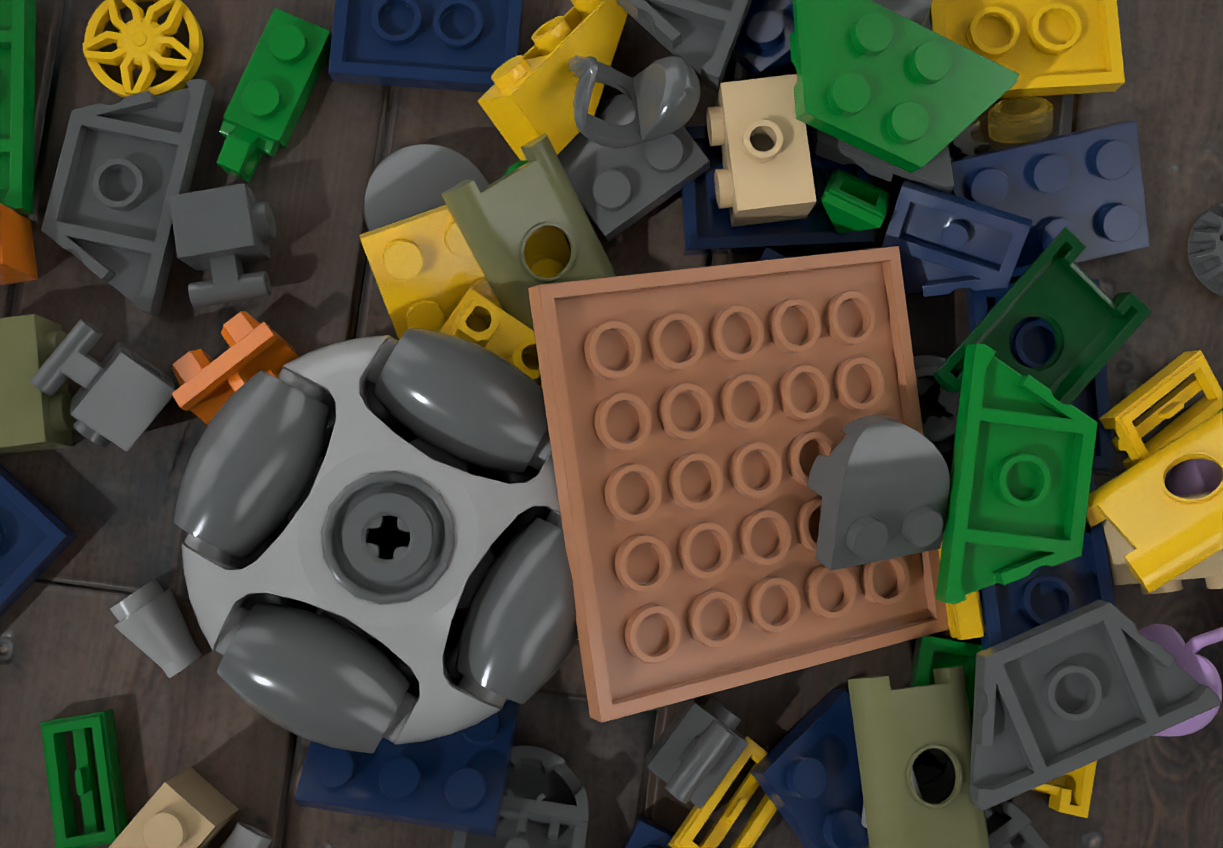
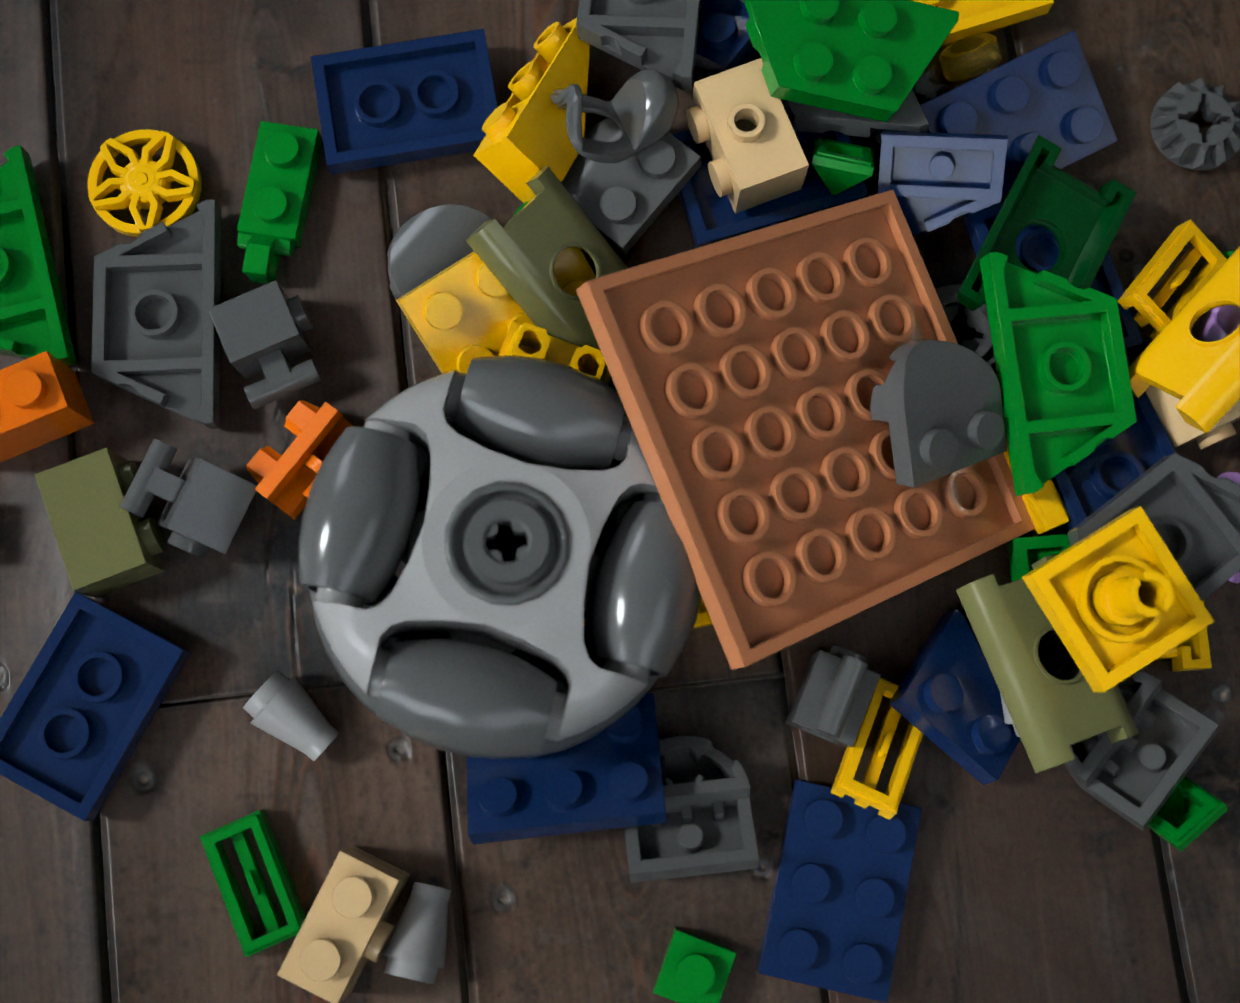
camera: 15 degrees left, 5 degrees down
(1006, 743) = (1118, 599): none -> yellow plate

